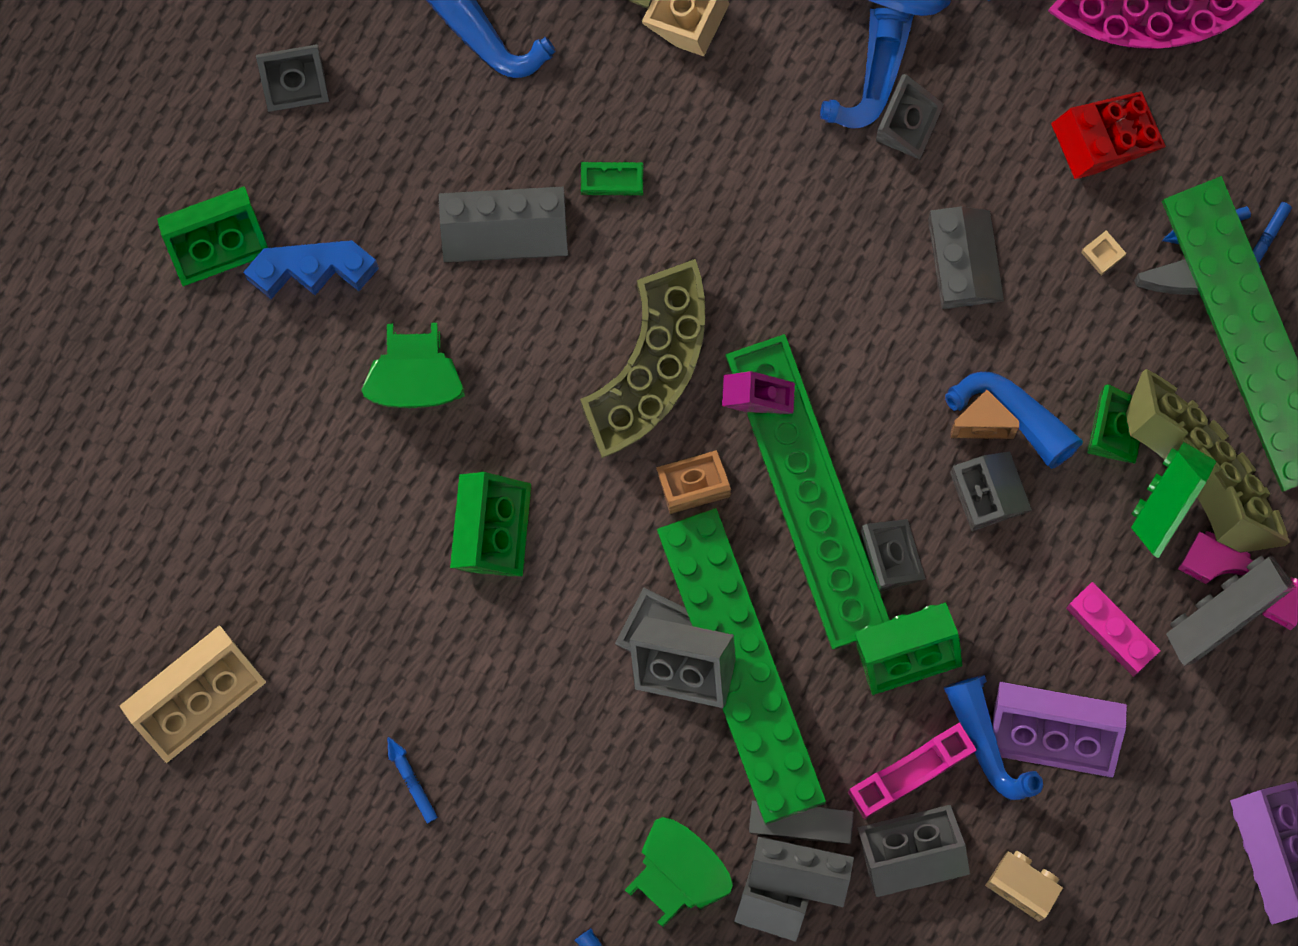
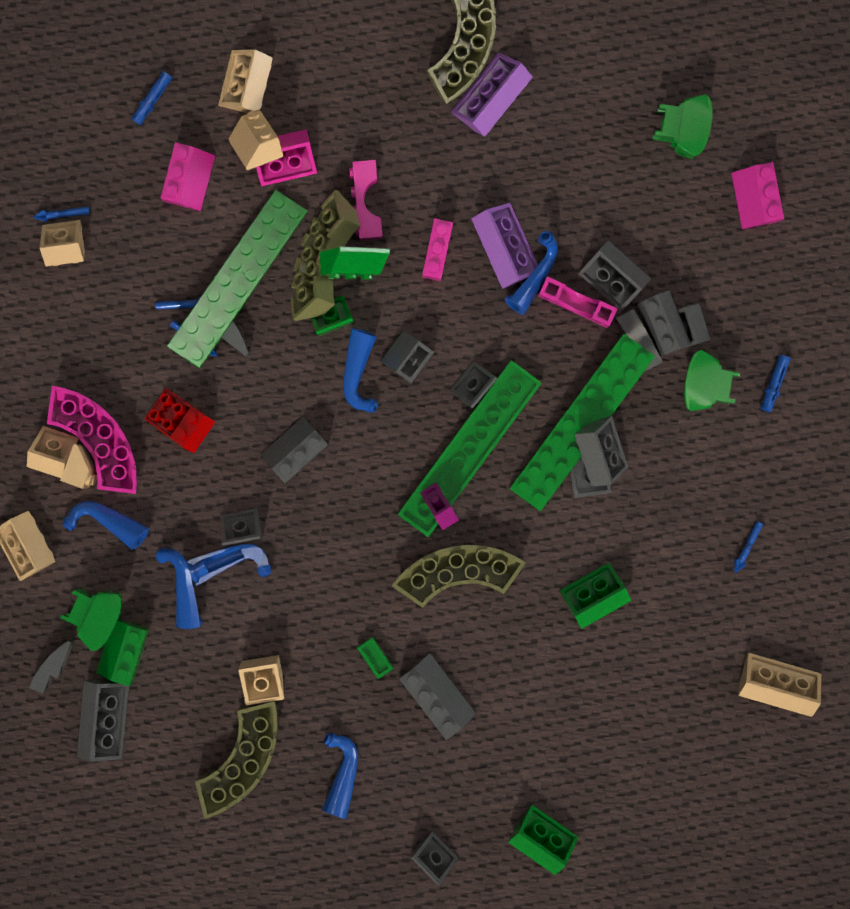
camera: 135 degrees left, 10 degrees up
(311, 266) = (526, 779): blue brick -> none
(412, 372) = (547, 687): green piece -> none
(694, 482) = (503, 509): medium nougat slope -> none
(909, 648) = (516, 345): green slope -> none
(986, 420) = (374, 384): medium nougat slope -> none
(1024, 885) = (596, 209): tan slope -> none
(1103, 252) = (244, 381): tan plate -> none
(1230, 610) = (391, 196): dark grey slope -> none

